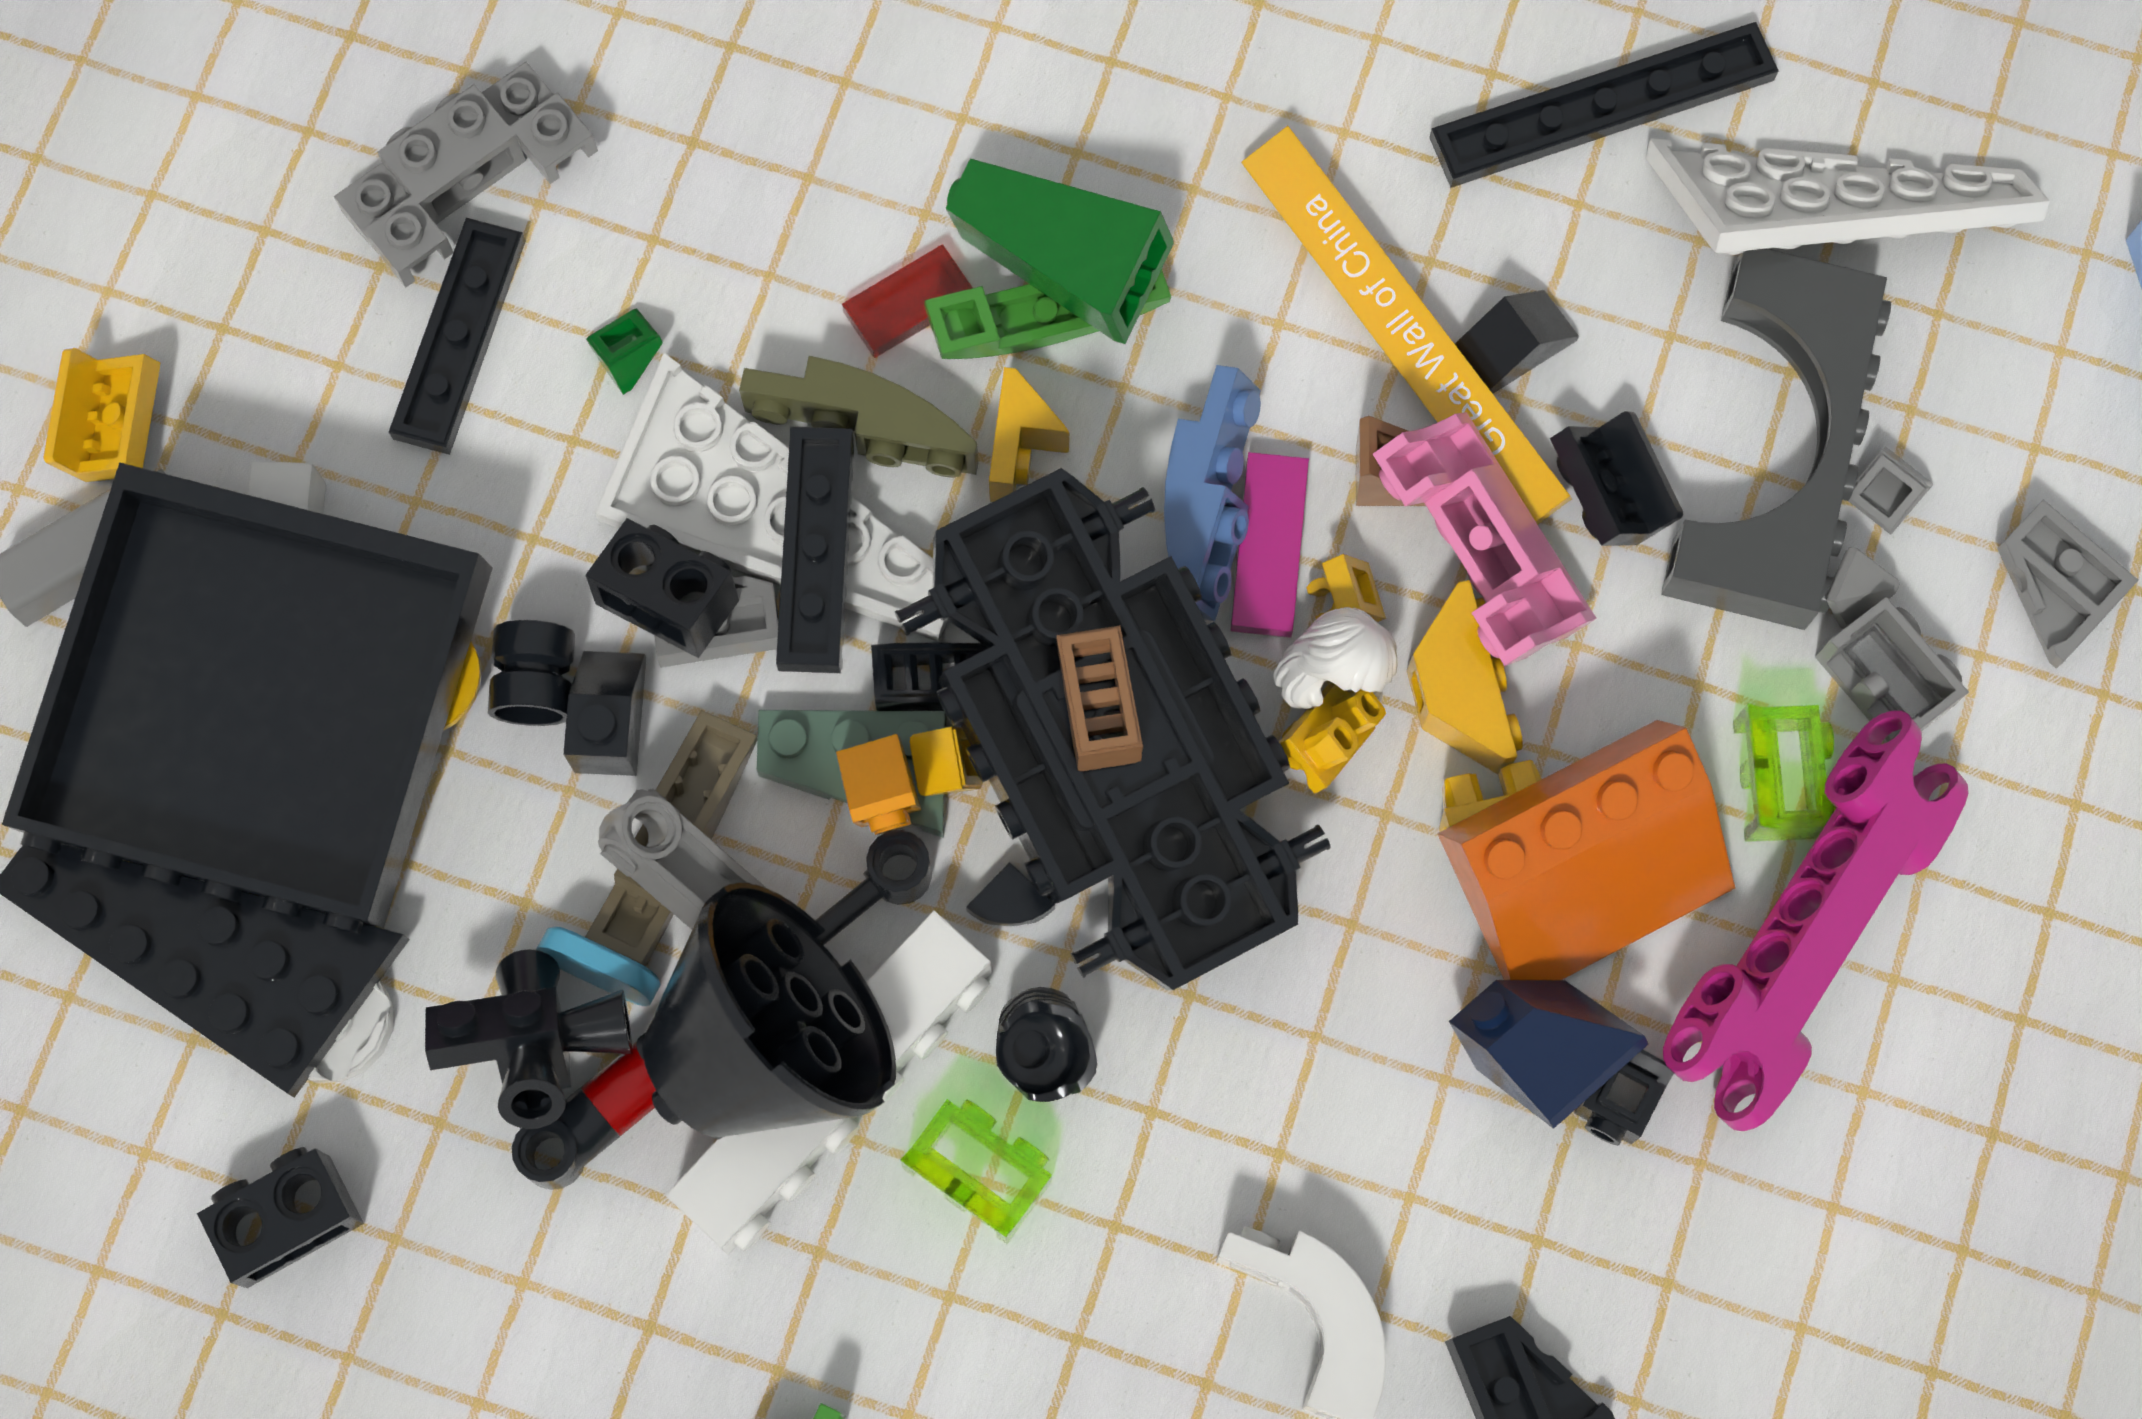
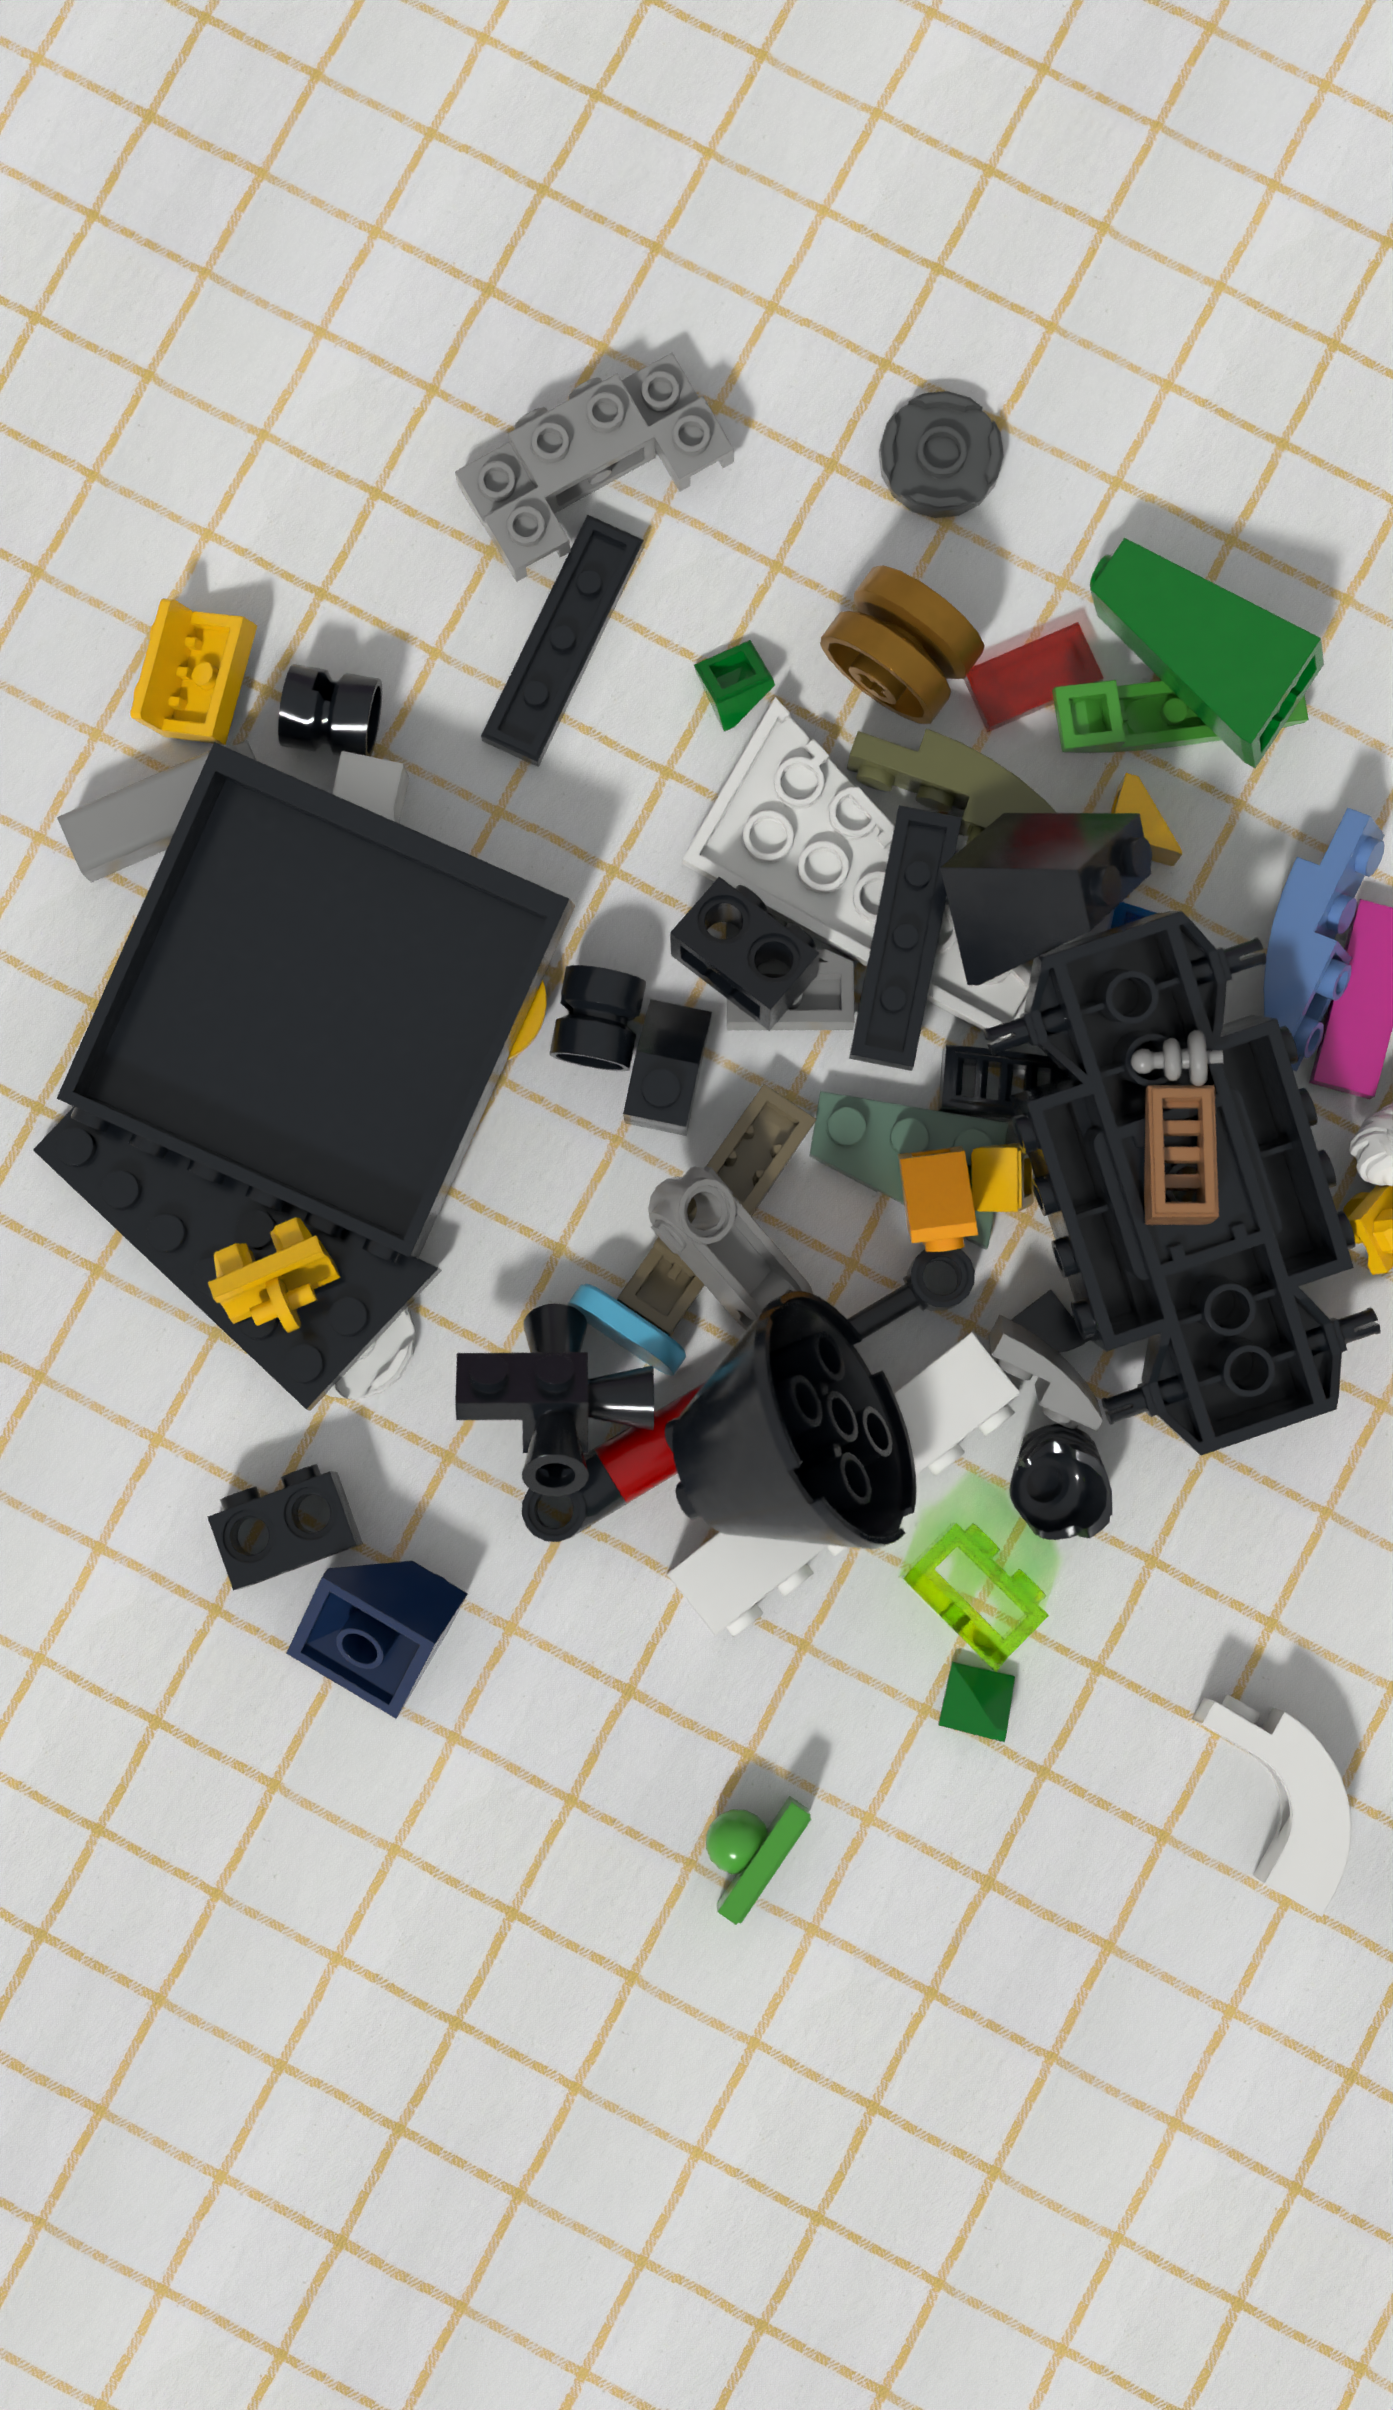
camera: 10 degrees right, 10 degrees up
(230, 430) = (329, 711): none -> black wheel
(238, 967) = (274, 1283): none -> yellow hips
(383, 1301) = (376, 1629): none -> dark blue slope
(774, 283) = (902, 644): none -> pearl gold wheel
(793, 117) = (940, 454): none -> dark grey tile
(927, 473) = (1039, 884): none -> black slope
(998, 1277) = (977, 1701): none -> green slope
(1032, 952) = (1058, 1385): none -> light grey slope
(1078, 605) = (1174, 1059): none -> light grey hair

